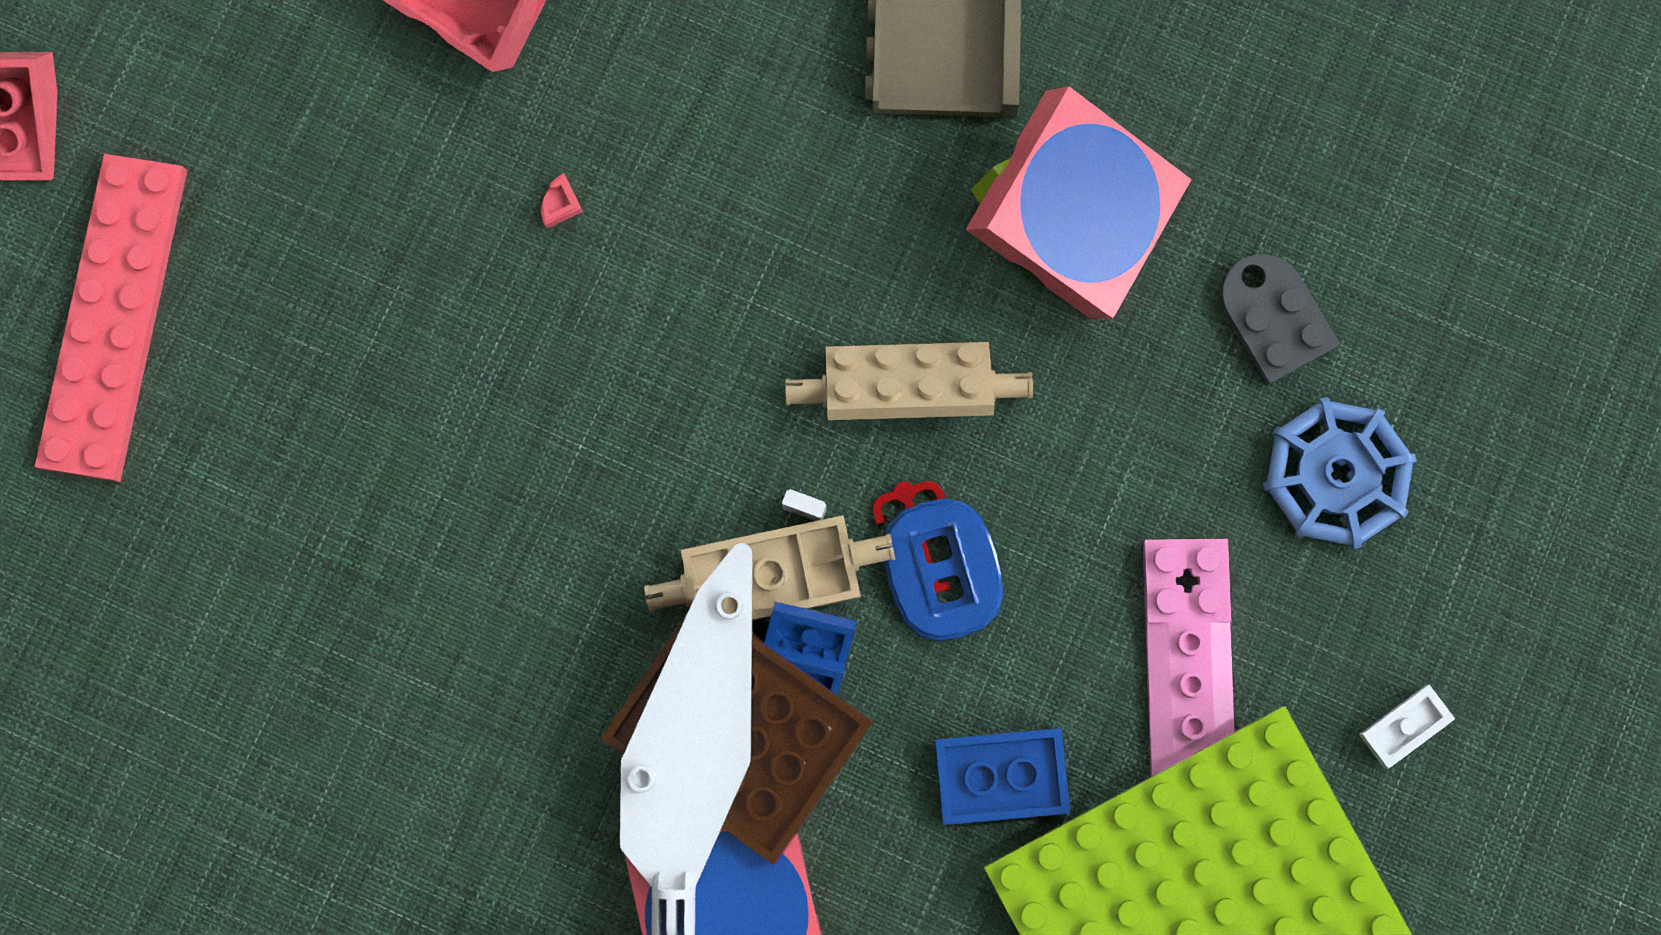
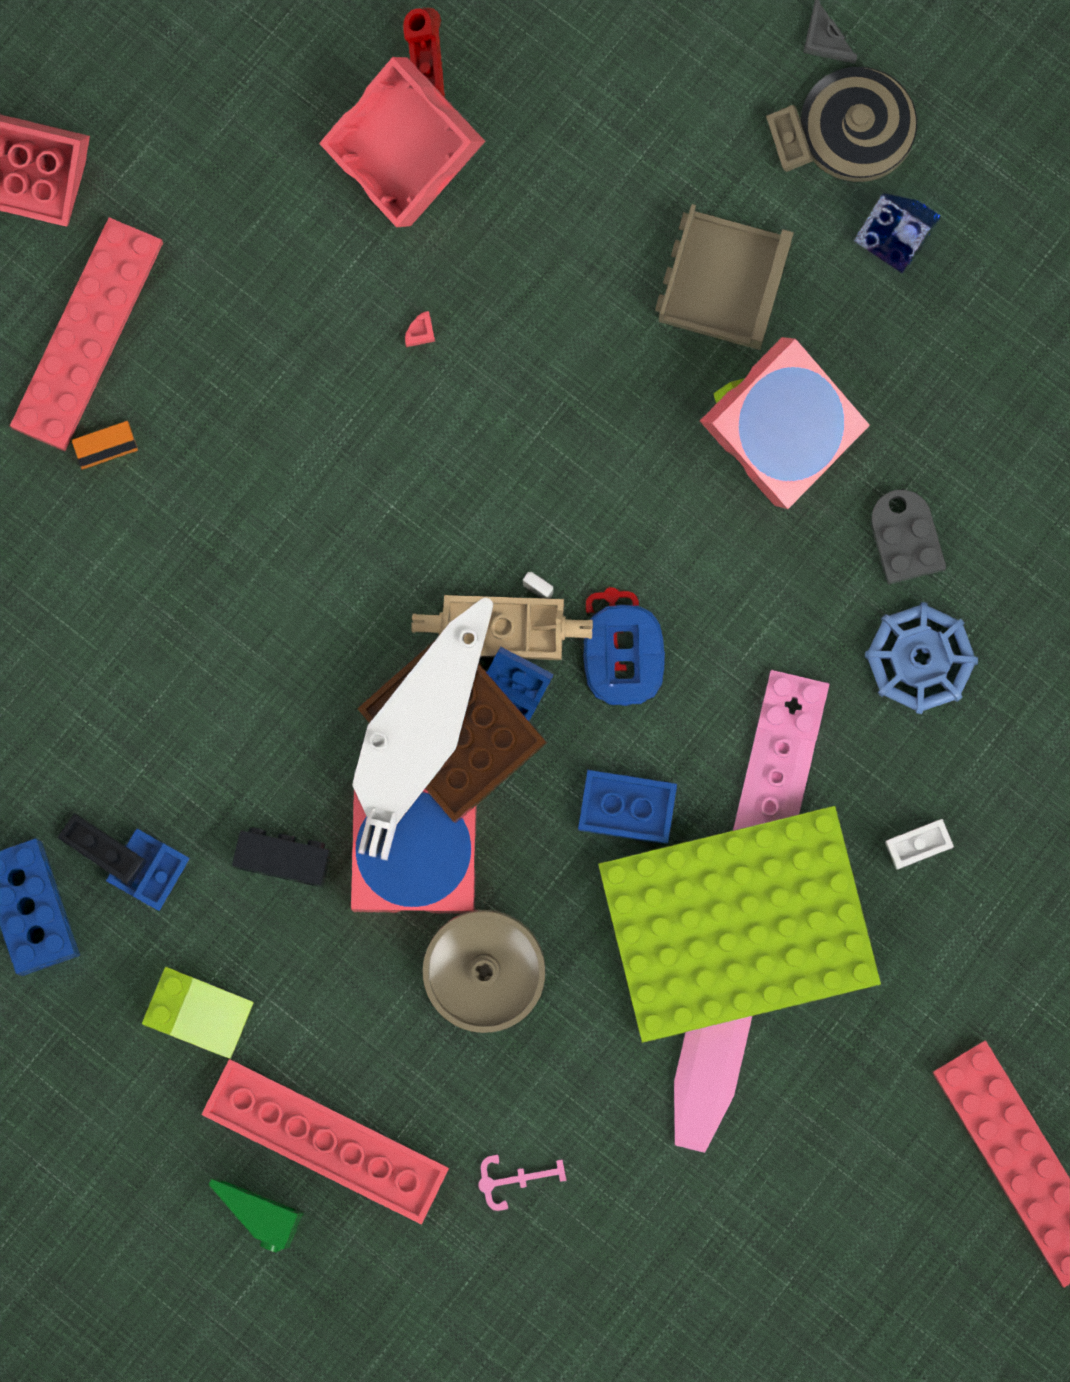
camera: 15 degrees right, 0 degrees up
(171, 460) = (104, 445): none -> orange tile
(909, 382) = (633, 518): tan plate -> none

